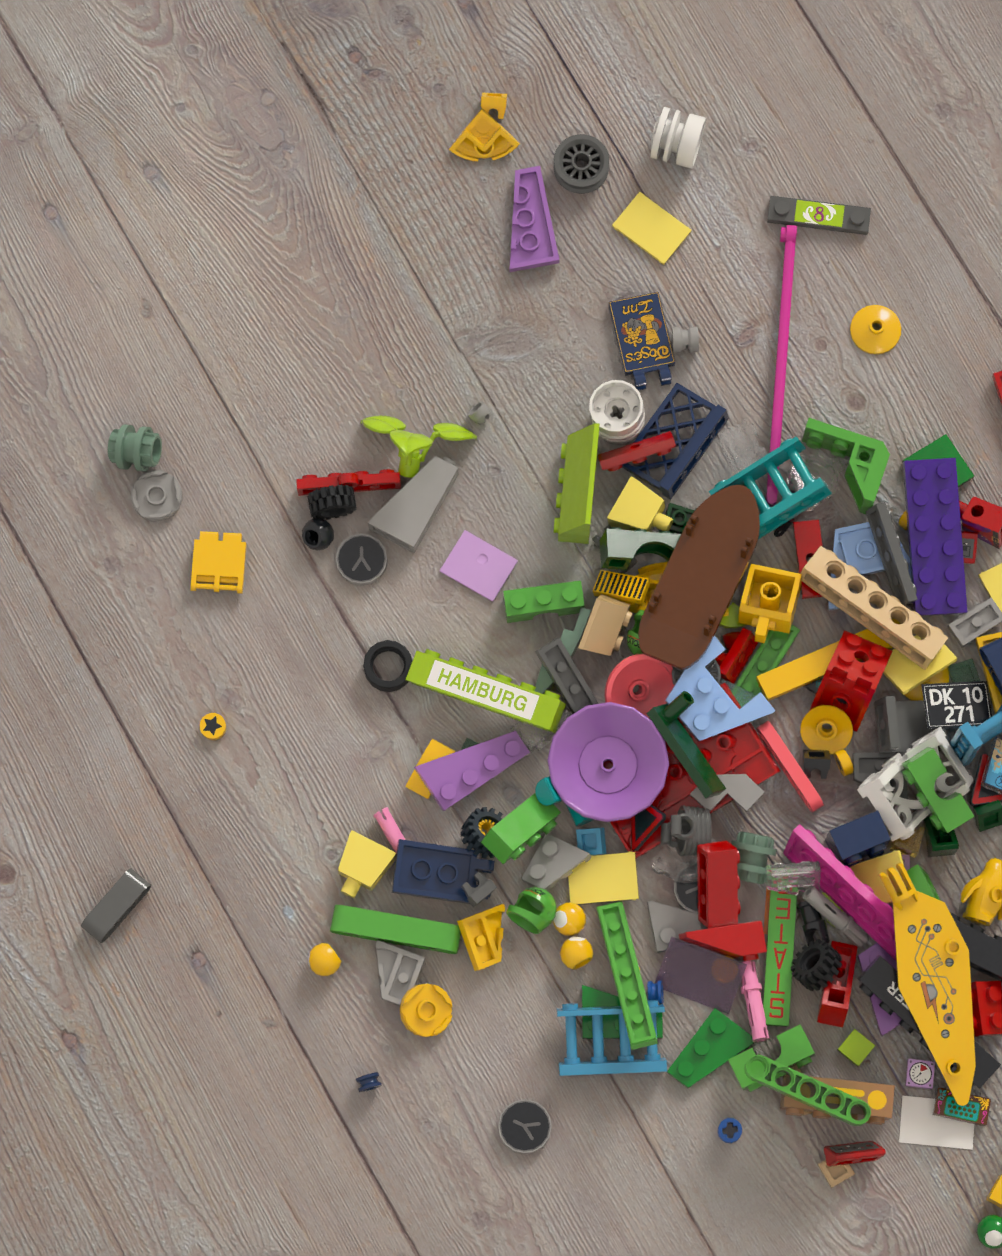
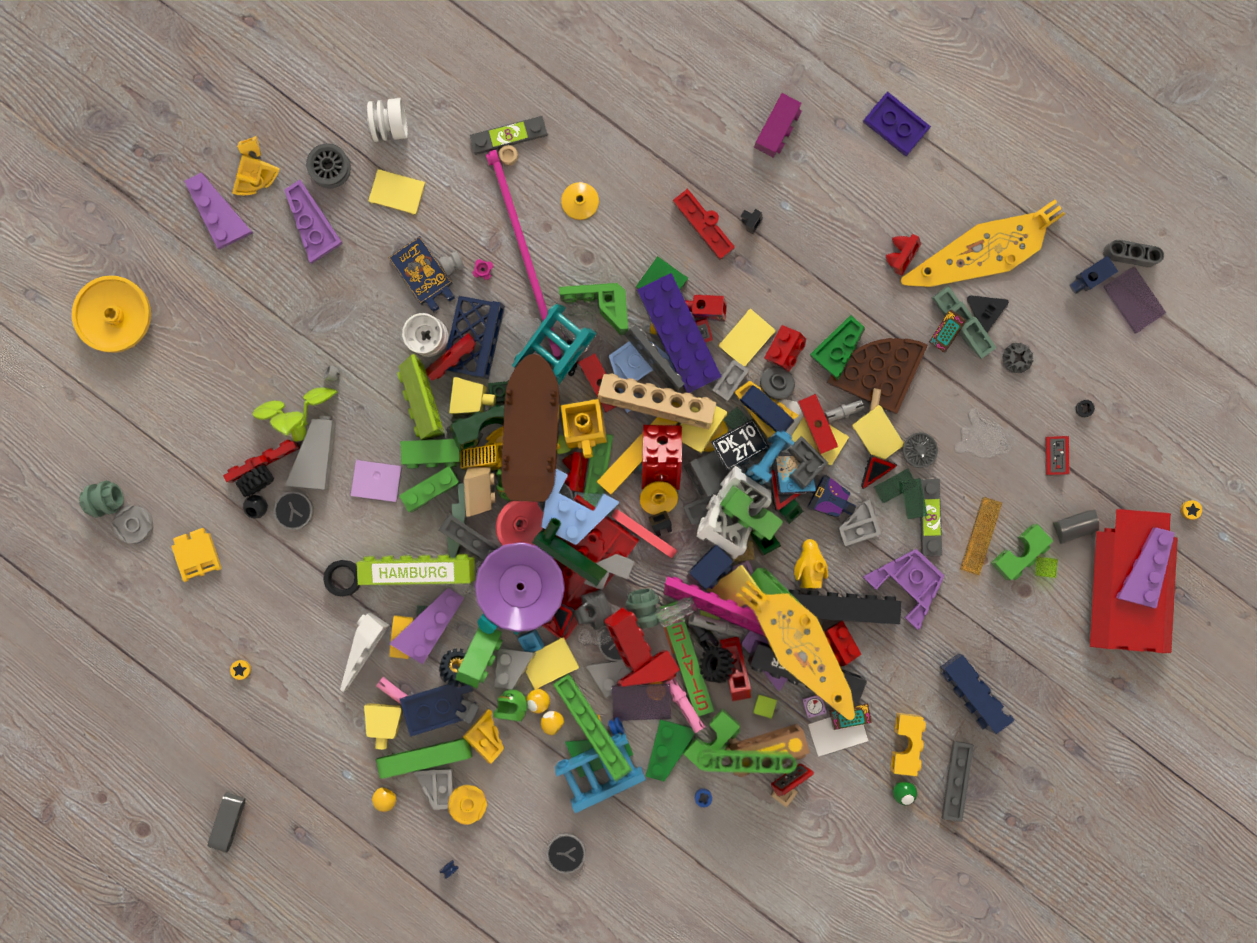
camera: 30 degrees left, 10 degrees up
(242, 233) = (111, 314): none -> yellow dish
(386, 752) = (365, 640): none -> white wedge
(420, 168) = (219, 217): none -> medium lavender wing
(561, 557) = (430, 453): none -> bright green brick
(720, 370) = (479, 264): none -> dark pink plate
(808, 239) = (508, 155): none -> tan tile
(843, 762) = (679, 515): yellow tile -> none

